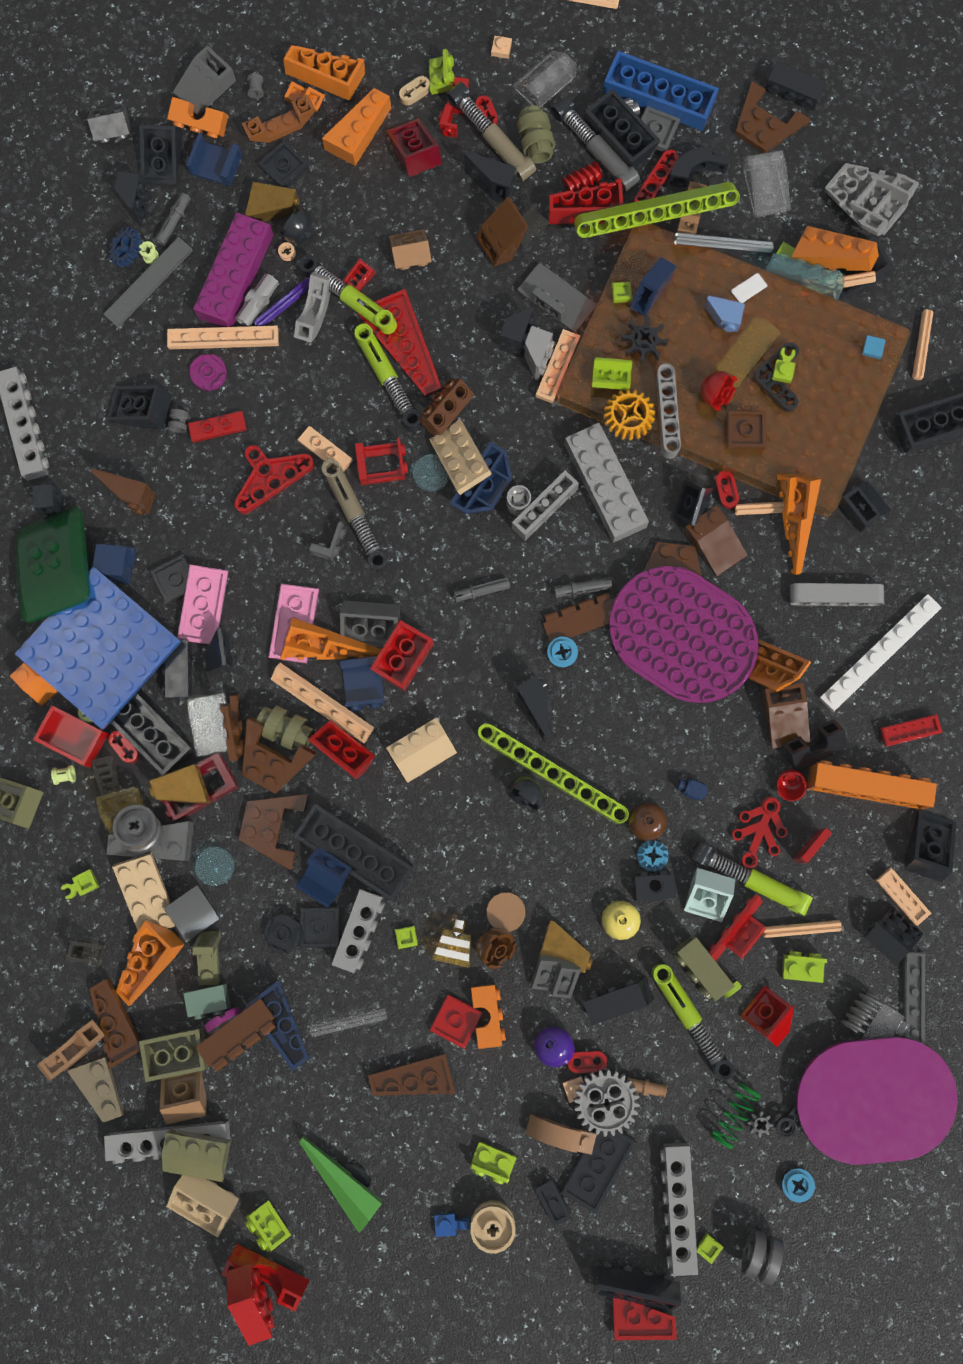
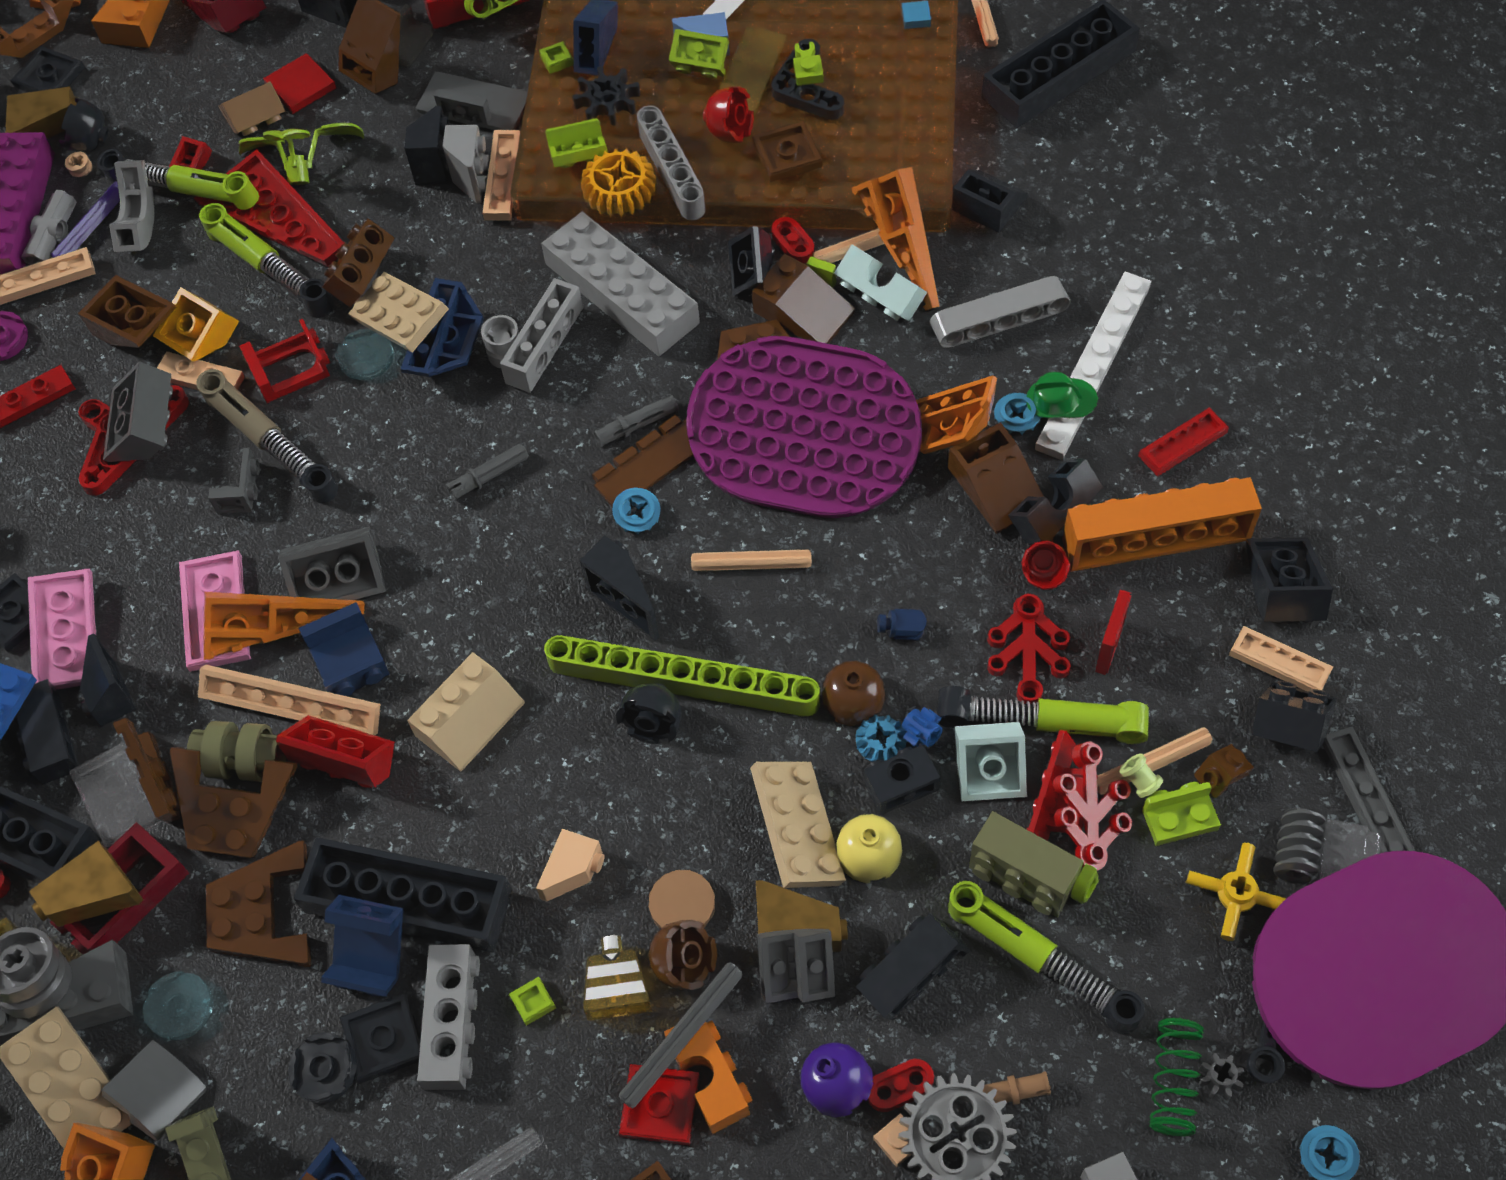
camera: 20 degrees left, 20 degrees down
(280, 472) = (138, 414): none -> dark grey slope
(291, 394) = (125, 313): none -> reddish brown slope
(331, 415) = (195, 326): none -> light orange slope
(402, 655) = (394, 590): red slope -> none
(425, 302) = (296, 166): none -> lime plant
(447, 237) = (300, 83): none -> red tile
(452, 867) = (570, 865): none -> light nougat slope
(479, 995) = (680, 1035): none -> dark grey axle
(586, 893) = (797, 824): none -> tan plate
(619, 711) = (751, 560): none -> light nougat axle
(678, 861) = (922, 727): none -> blue gear
(716, 330) = (698, 53): none -> lime bracket
(736, 522) = (823, 269): none -> lime tile
(745, 969) = (1090, 809): none -> plant
(759, 534) = (898, 296): none -> light aqua arch
(769, 1015) = (1162, 903): red slope -> none
(788, 935) = (1141, 775): none -> yellowish green bush
(809, 1029) = (1227, 894): none -> yellow bar
(826, 675) = (1016, 402): none -> dark azure gear
(839, 950) = (1223, 769): none -> reddish brown bracket
(849, 673) = (1062, 396): none -> green piece

